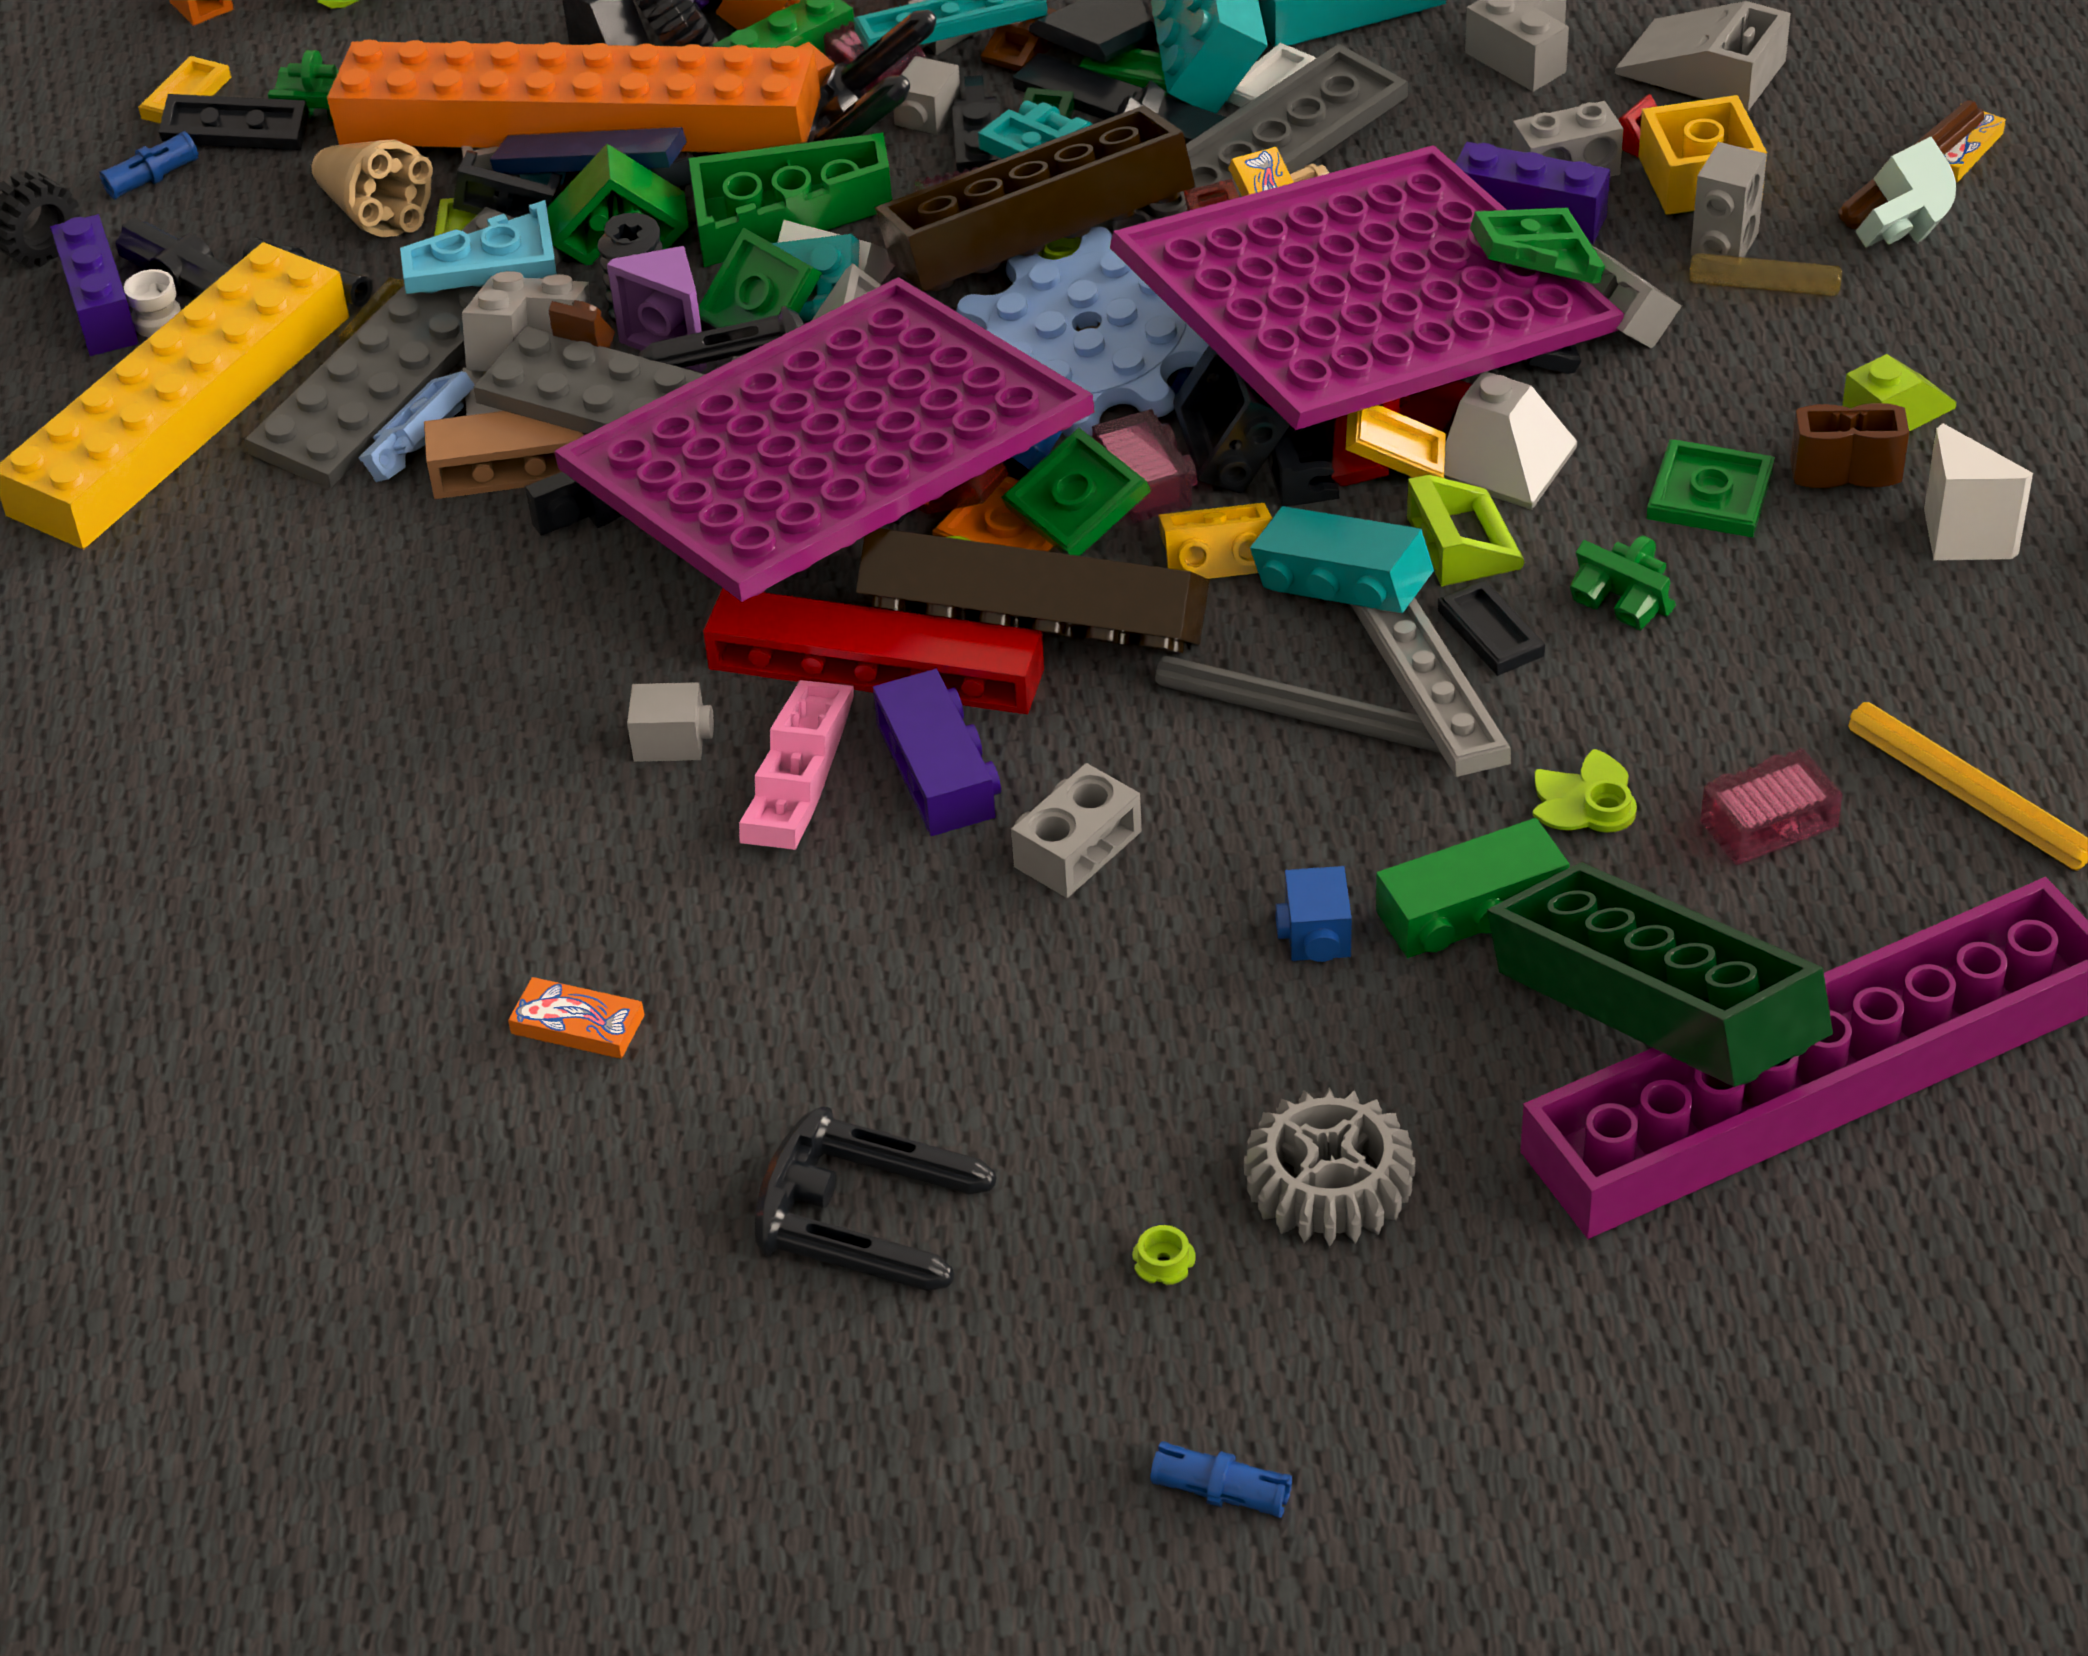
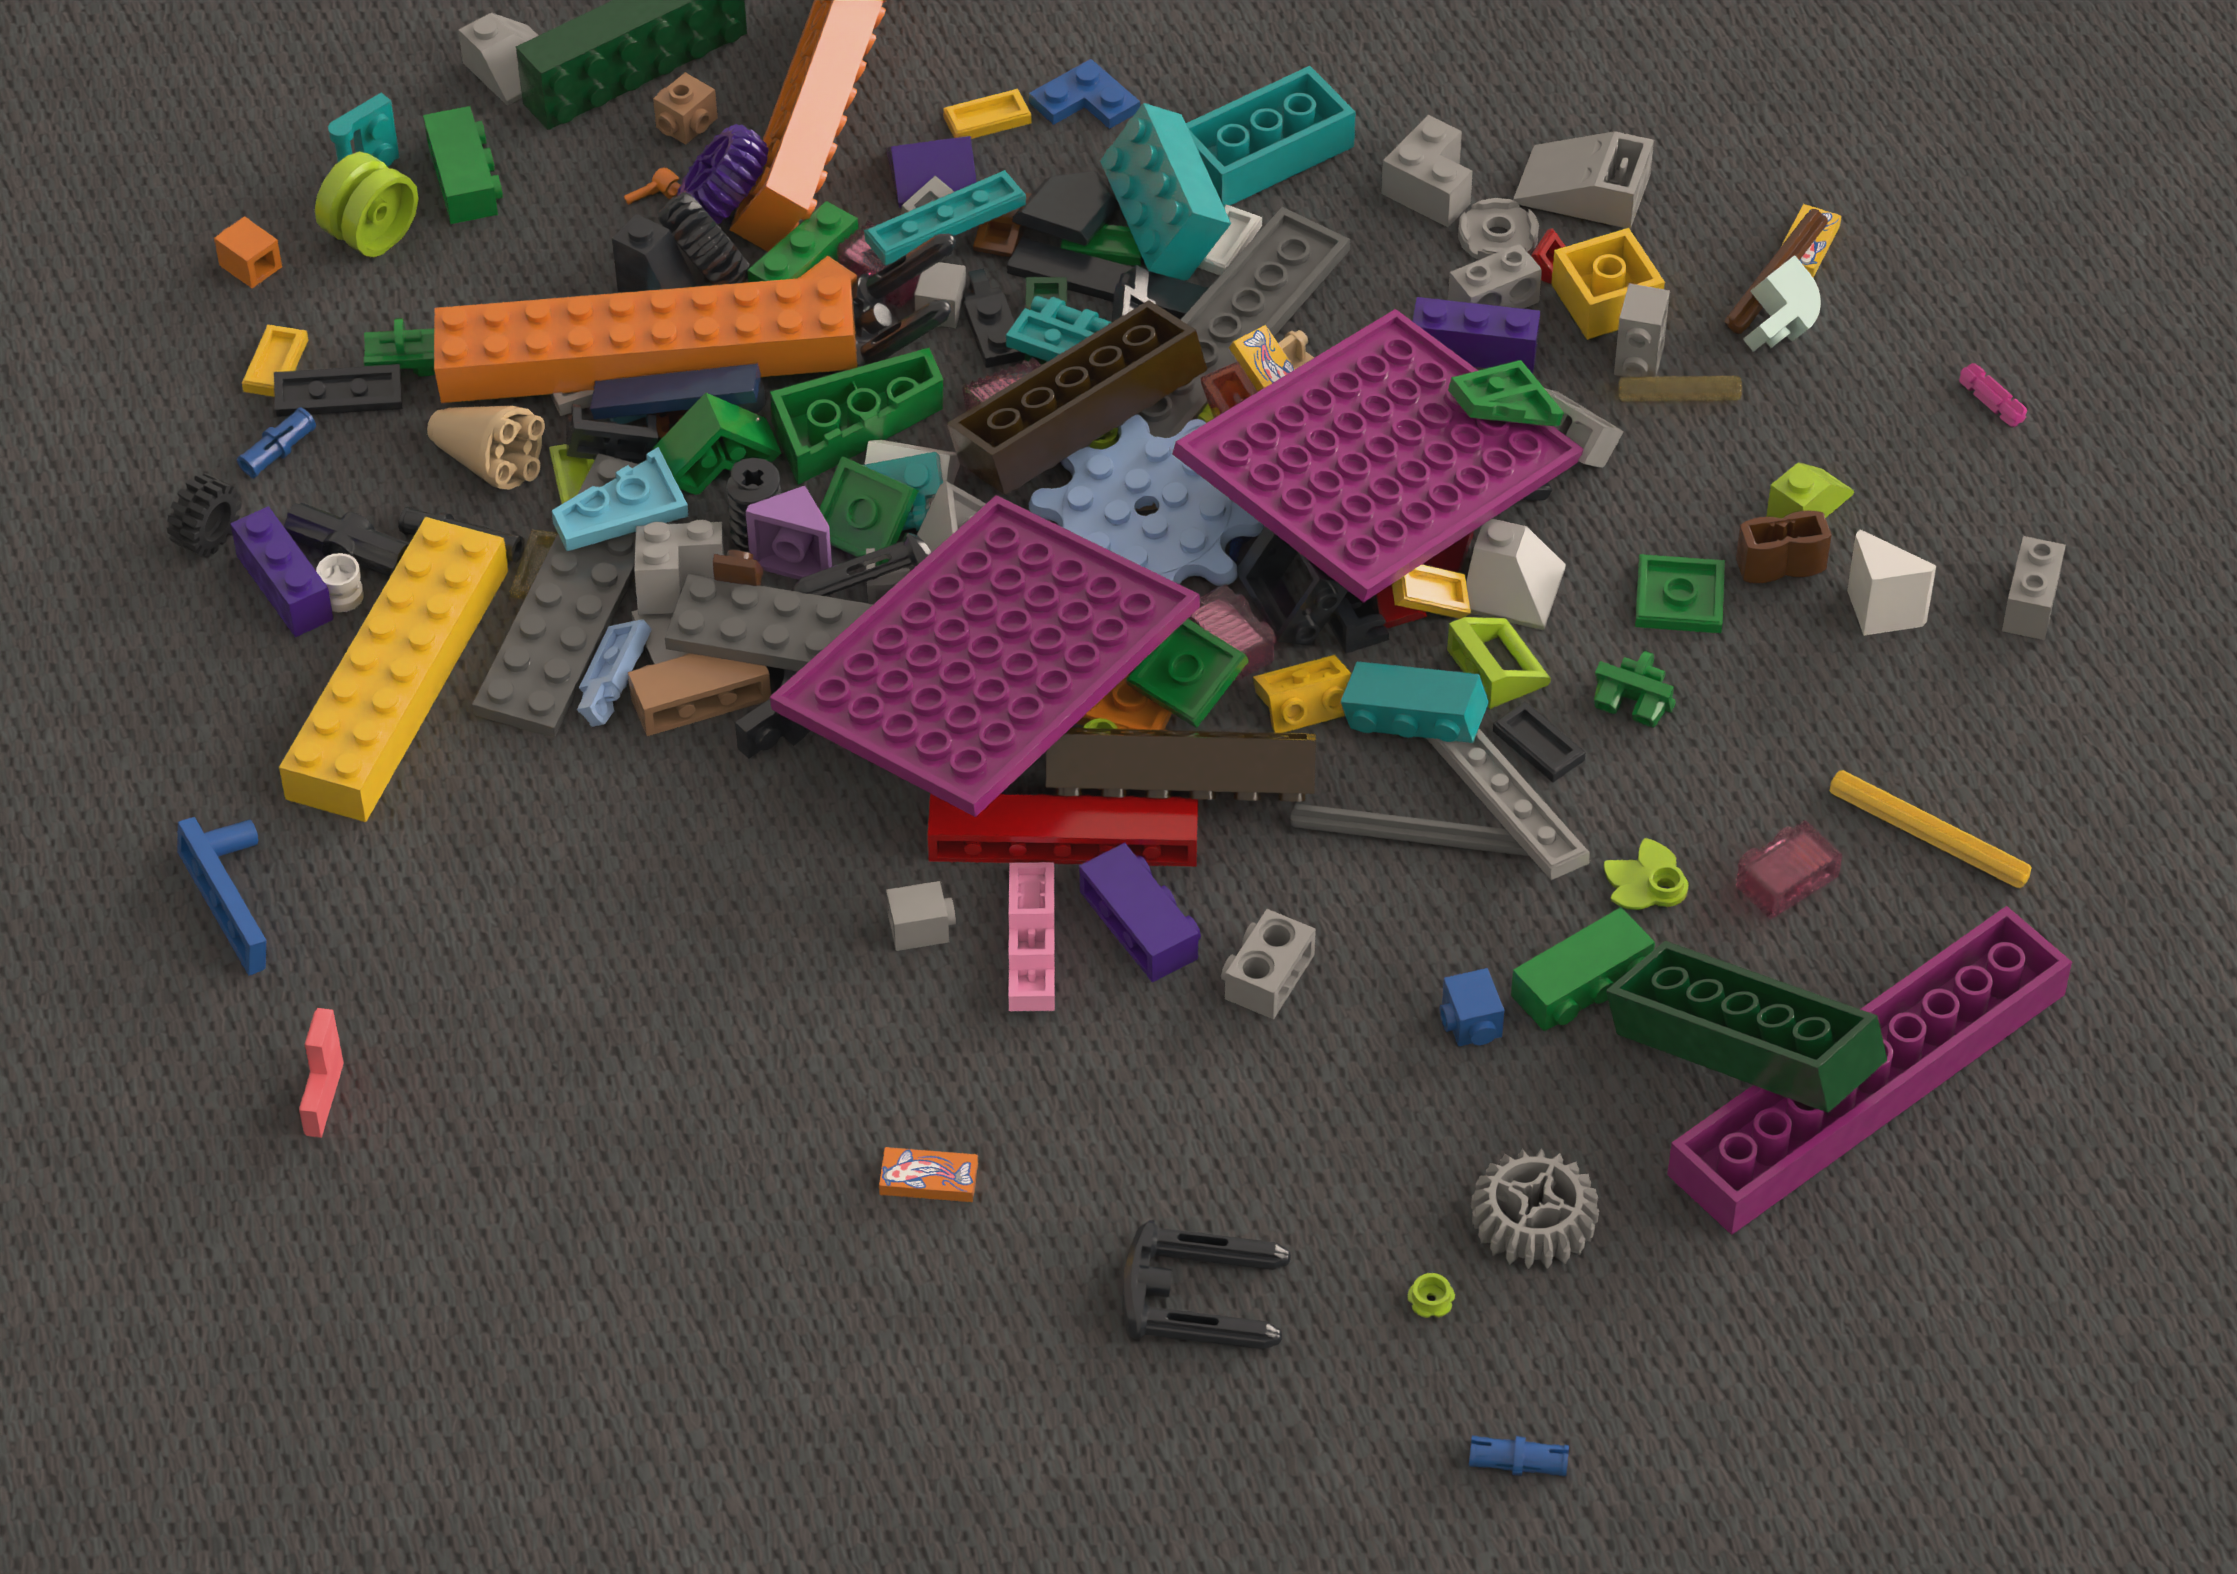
camera: 15 degrees left, 5 degrees up
(1593, 81) = (1497, 212): none -> light grey tile

